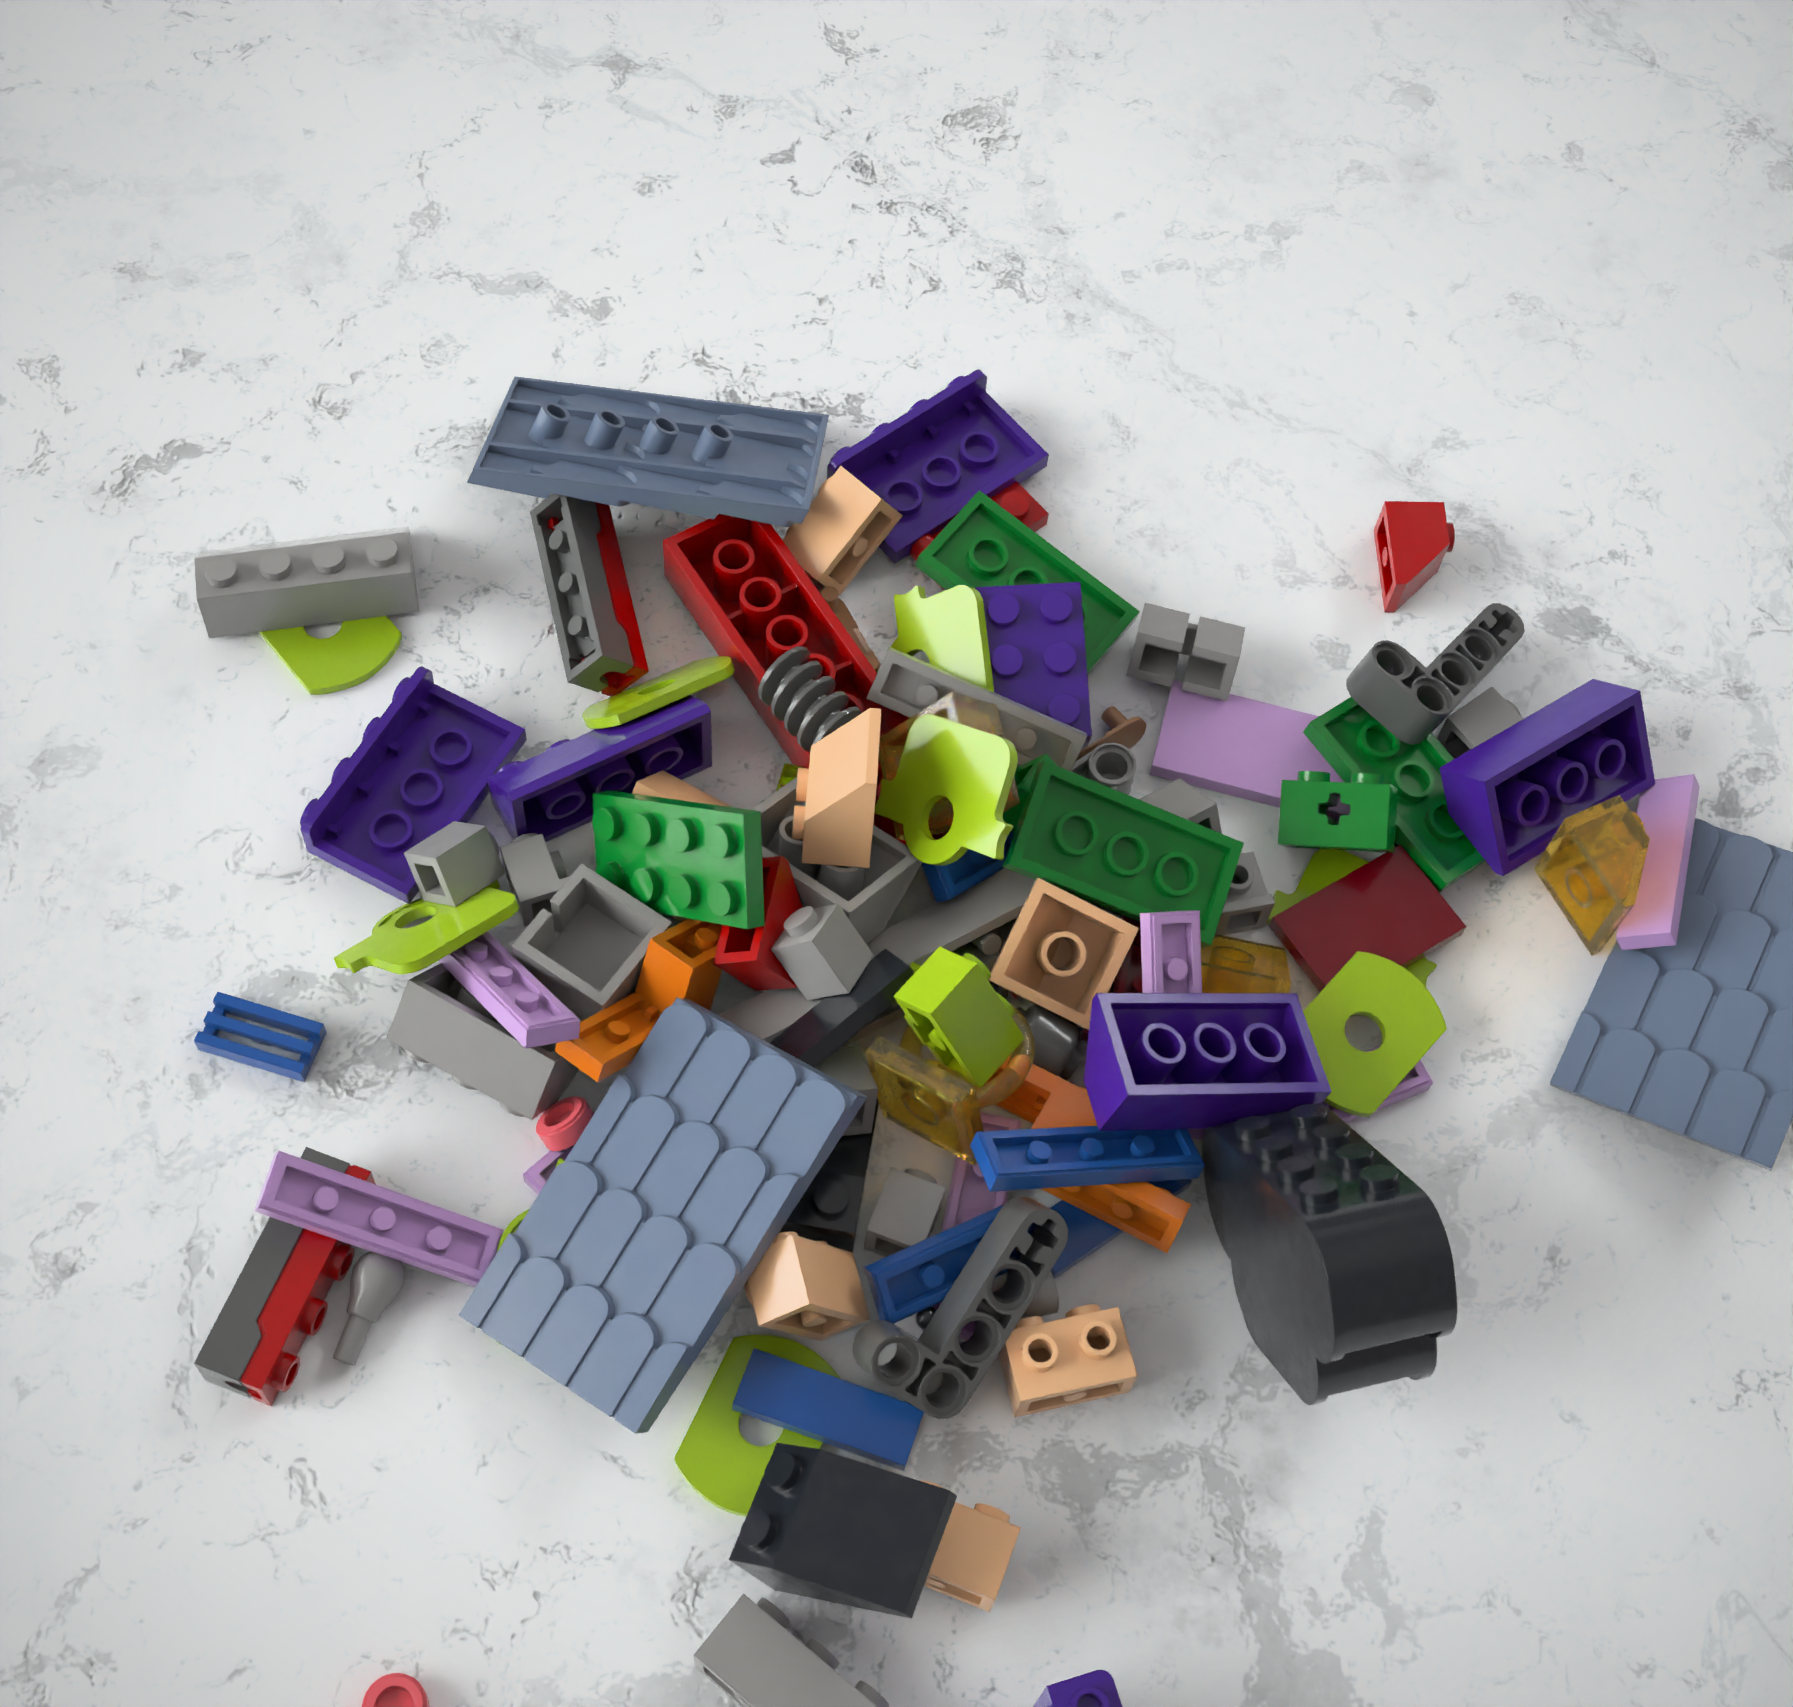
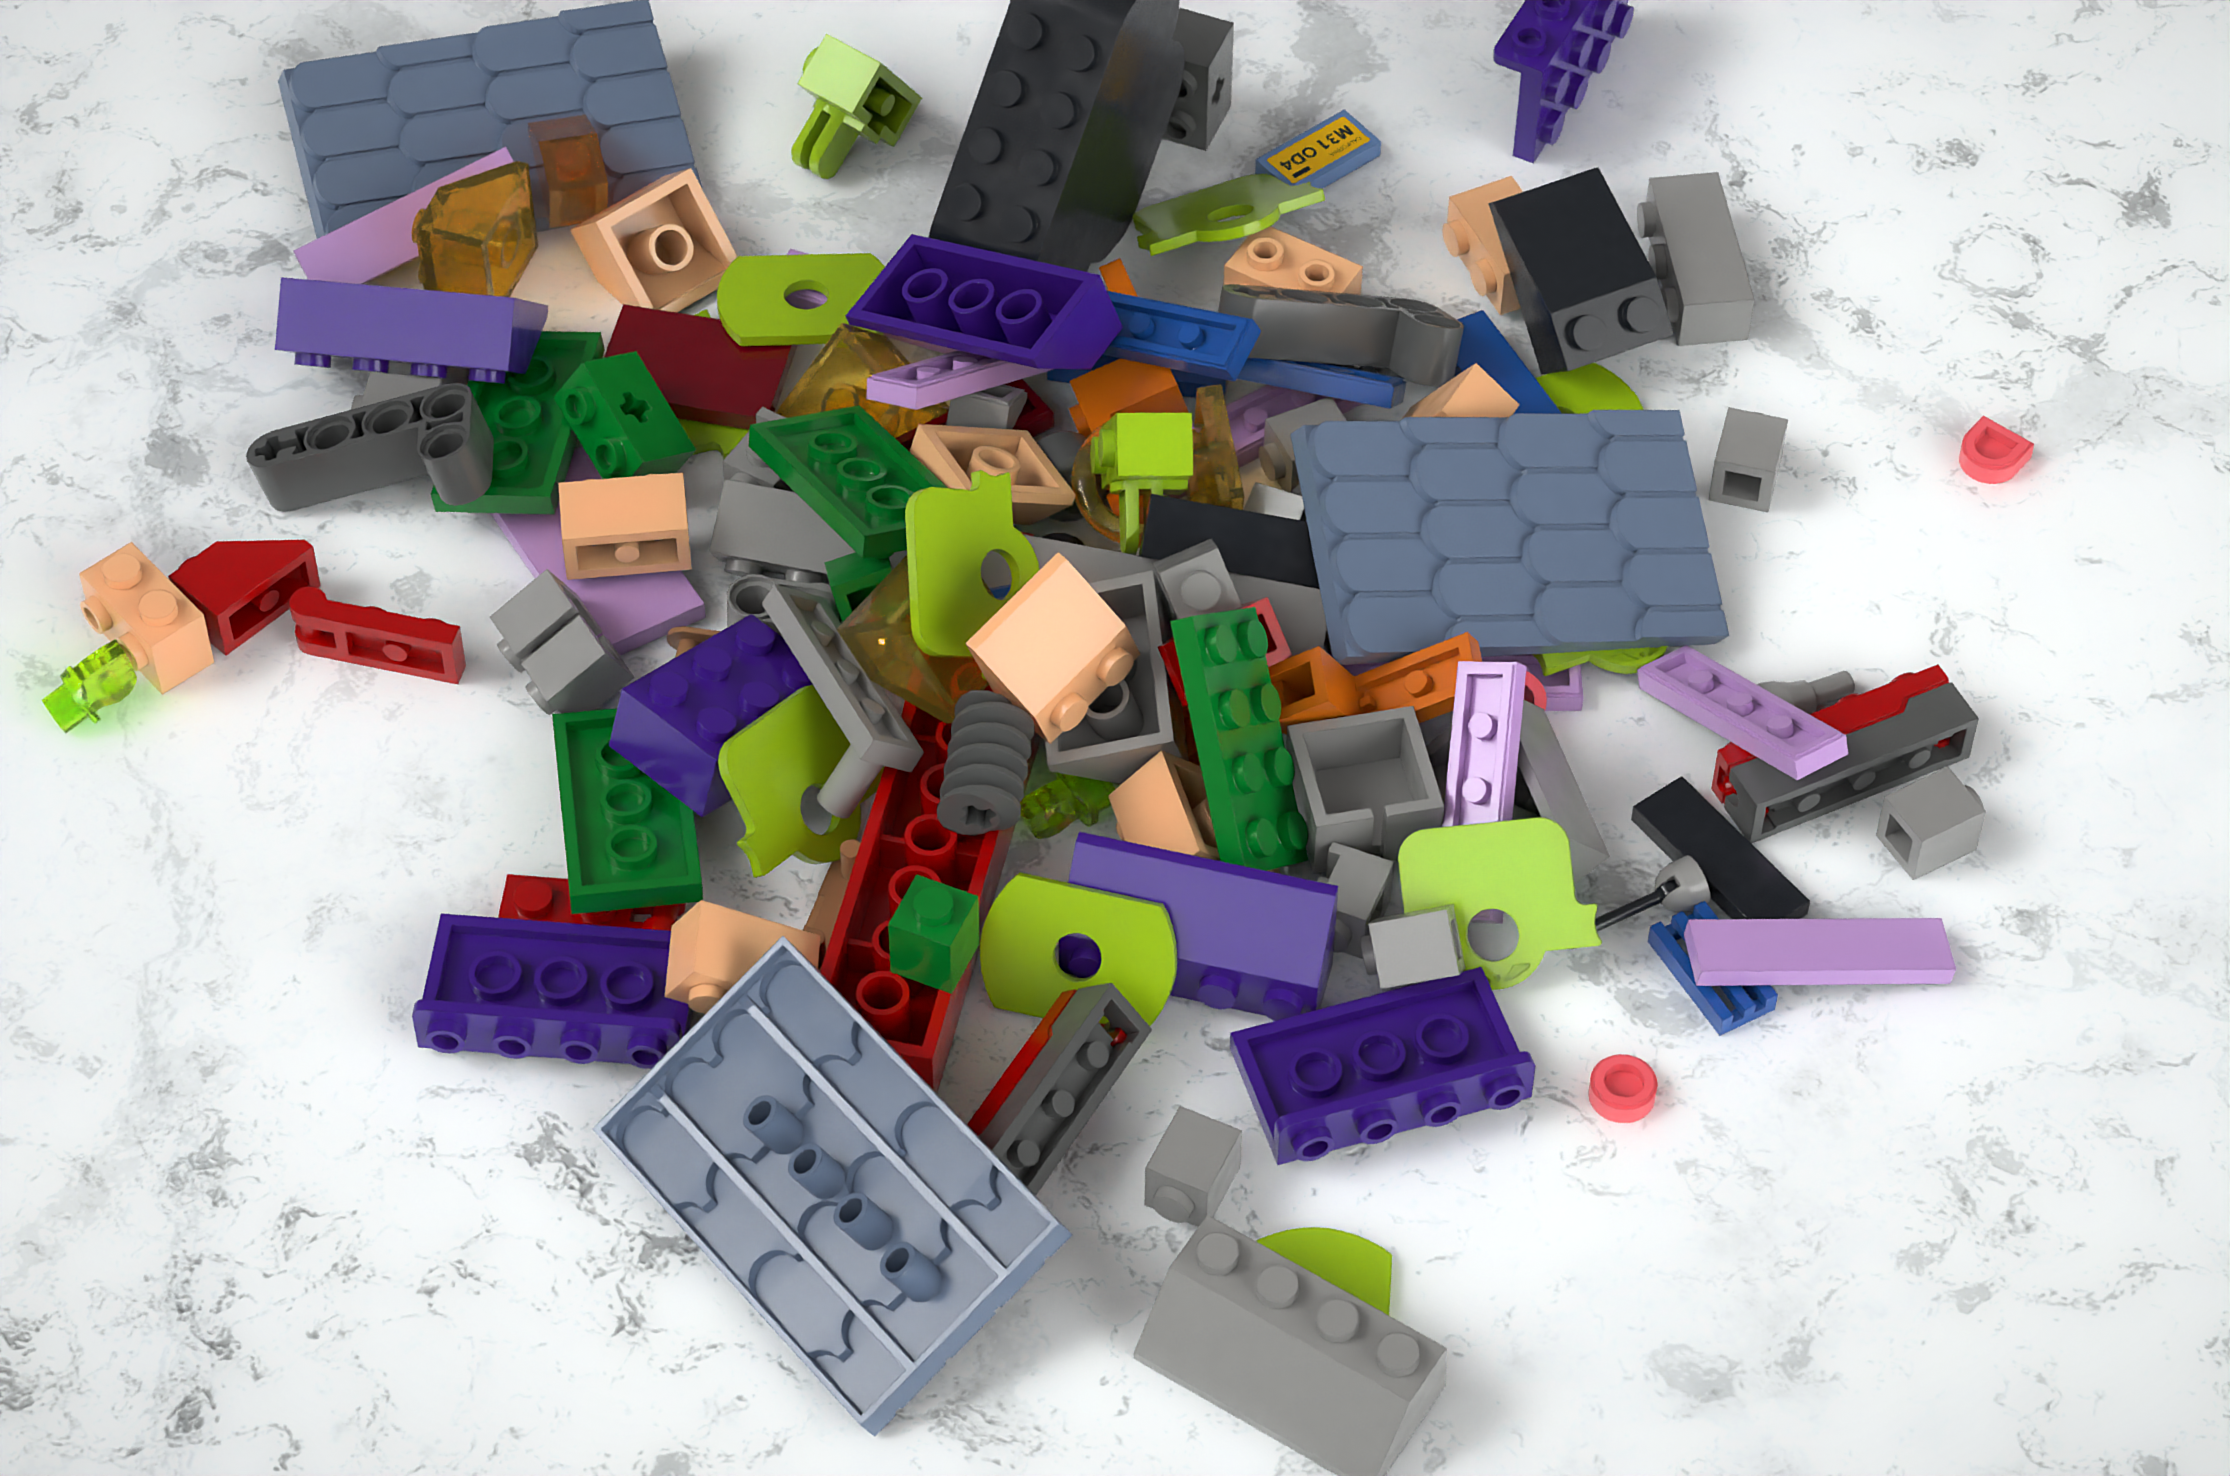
camera: 130 degrees left, 10 degrees down
(178, 1267) = (1931, 822): none -> light grey brick
(184, 1093) = (1819, 951): none -> lavender tile
(252, 903) = (1622, 1088): none -> coral tile
(323, 1122) = (1735, 871): none -> black tile
(329, 1071) = (1676, 888): none -> light grey hinge
(469, 635) = (1192, 1167): none -> light grey brick
(577, 1502) = (1748, 459): none -> light grey brick
(726, 580) = (934, 933): none -> green brick
(1188, 1535) = (1322, 153): none -> tile
(1200, 1408) = (1195, 214): none -> lime piece
(1244, 741) = (626, 525): none -> light nougat brick
(1299, 582) = (377, 637): none -> red plate
(1336, 1477) = (1206, 79): none -> dark grey brick
(1400, 431) = (92, 684): none -> clear neon green piece
(1432, 477) = (147, 617): none -> light nougat brick
(1508, 995) = (658, 245): none -> light nougat slope
(1538, 1225) = (852, 99): none -> lime brick
(1633, 984) = (569, 169): none -> clear orange slope

